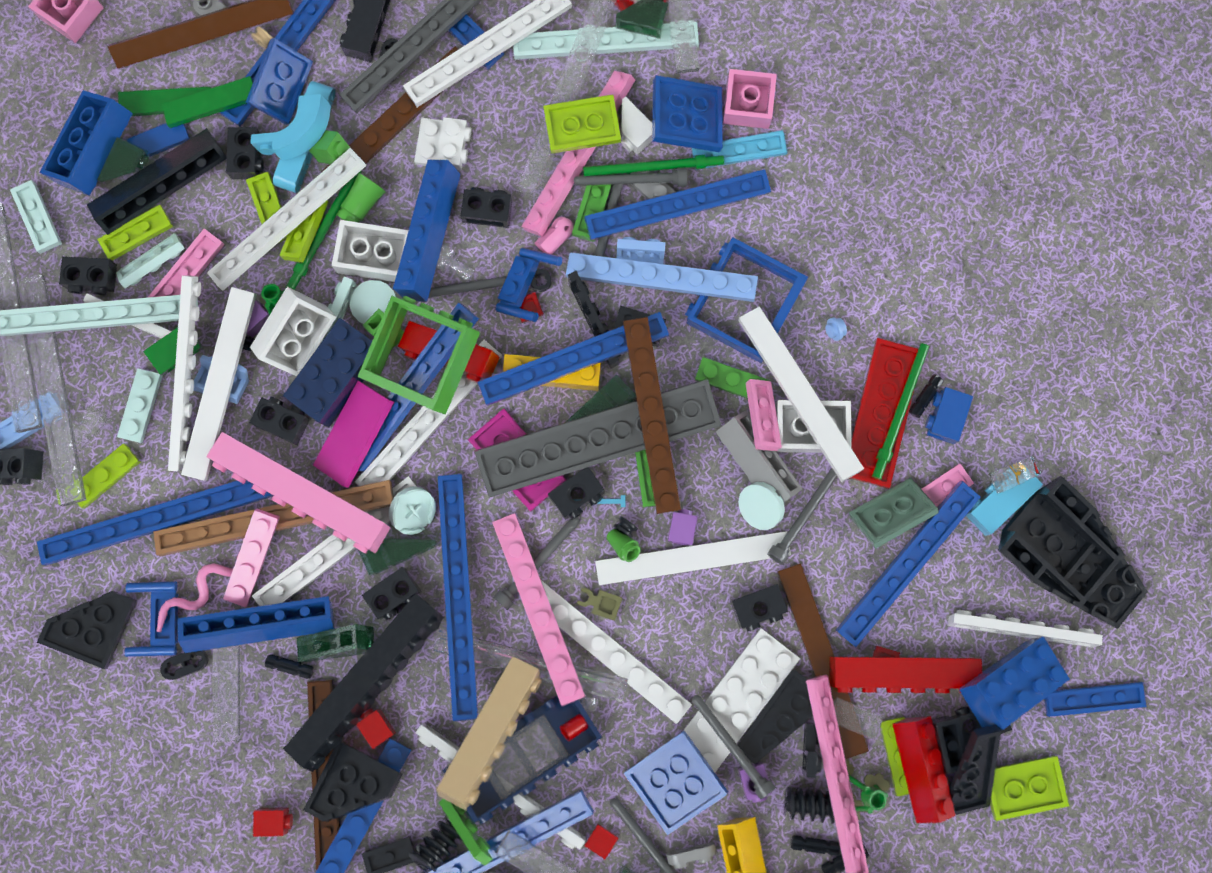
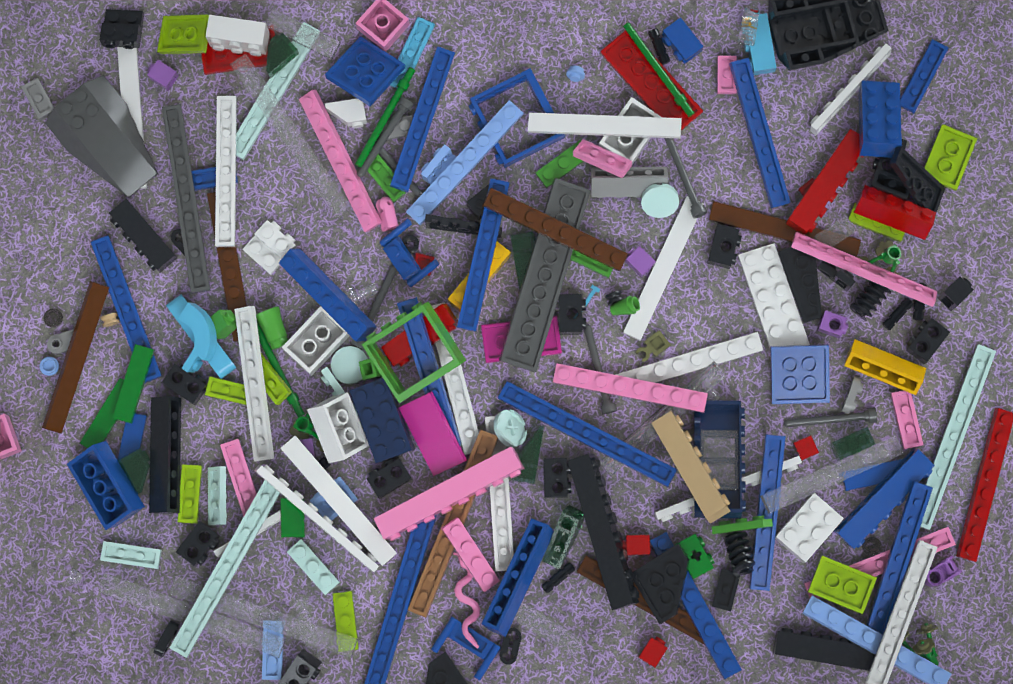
camera: 55 degrees left, 0 degrees up
(178, 11) = (49, 366): none -> light blue plate
(279, 81) = (152, 327): blue tile -> none
(392, 808) = (705, 561): none -> green brick
(484, 214) = (340, 249): black brick -> none
(573, 727) = (722, 415): red hinge -> none
(582, 124) = (325, 144): lime plate -> none
(762, 785) = (837, 319): dark grey piece -> none
(893, 512) = (721, 119): sand green tile -> none

